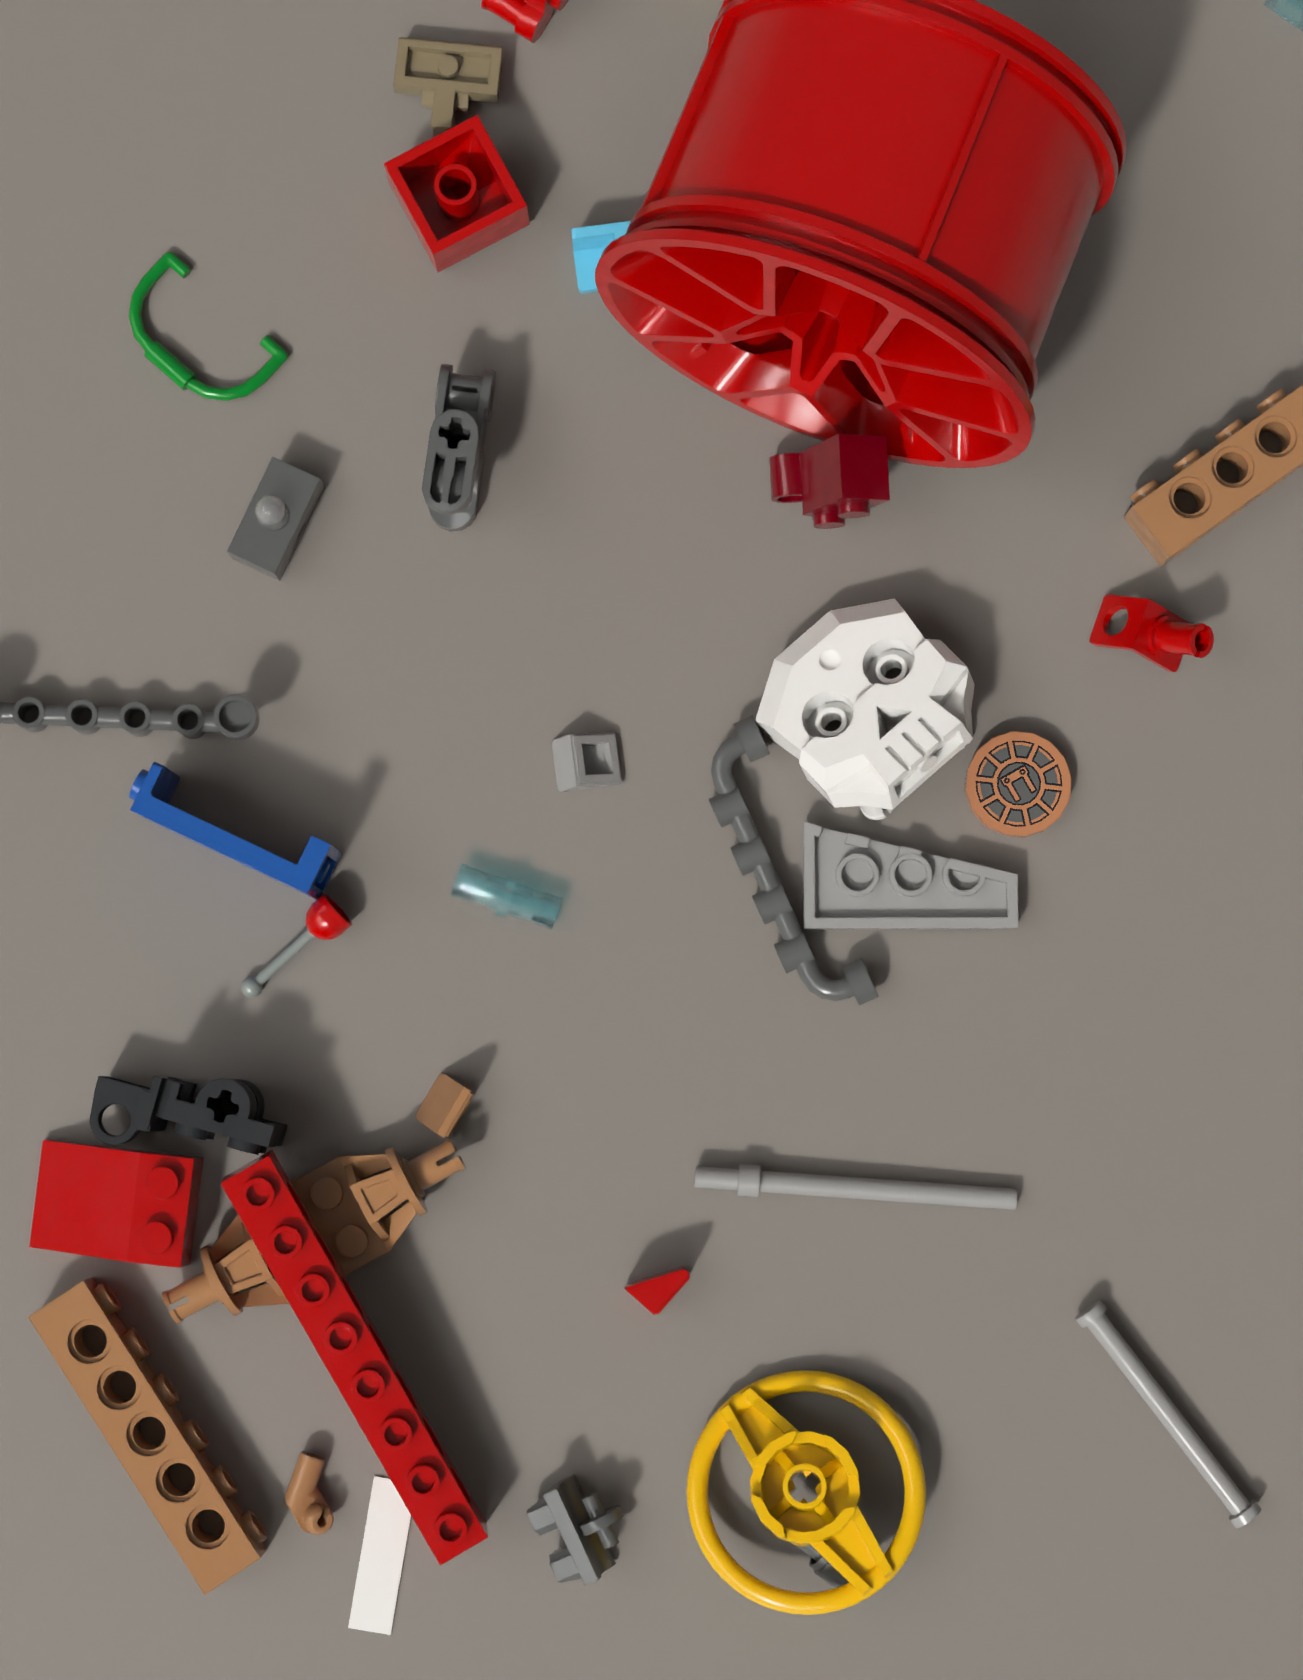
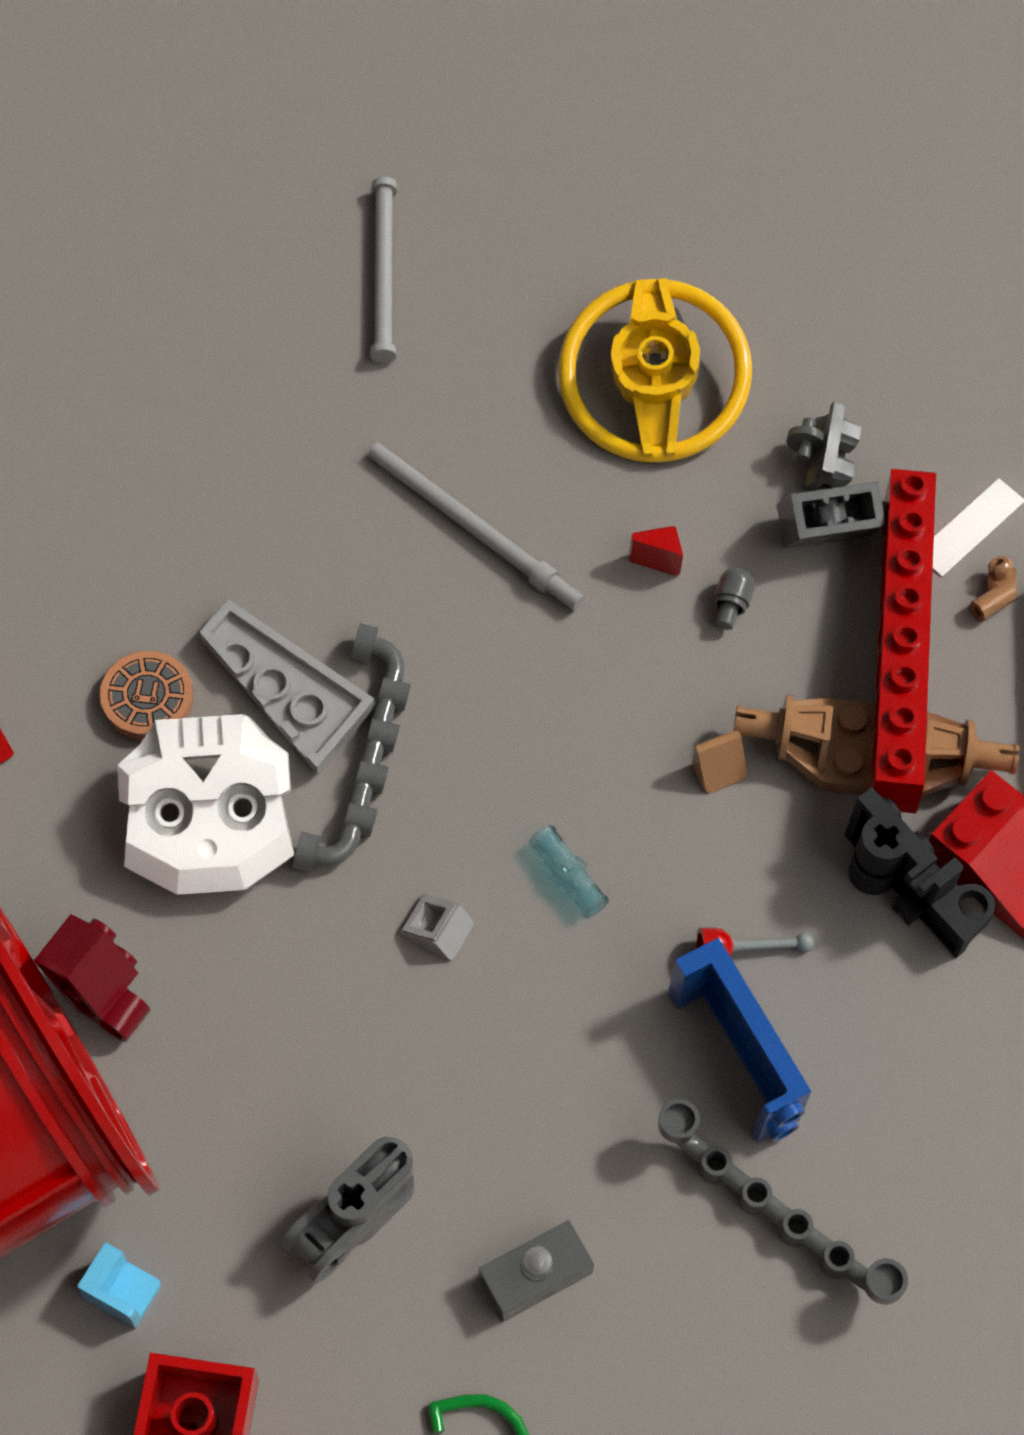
camera: 145 degrees left, 20 degrees down
(516, 1446) = (831, 514): none -> dark grey brick
(555, 1294) = (733, 595): none -> dark grey cylinder

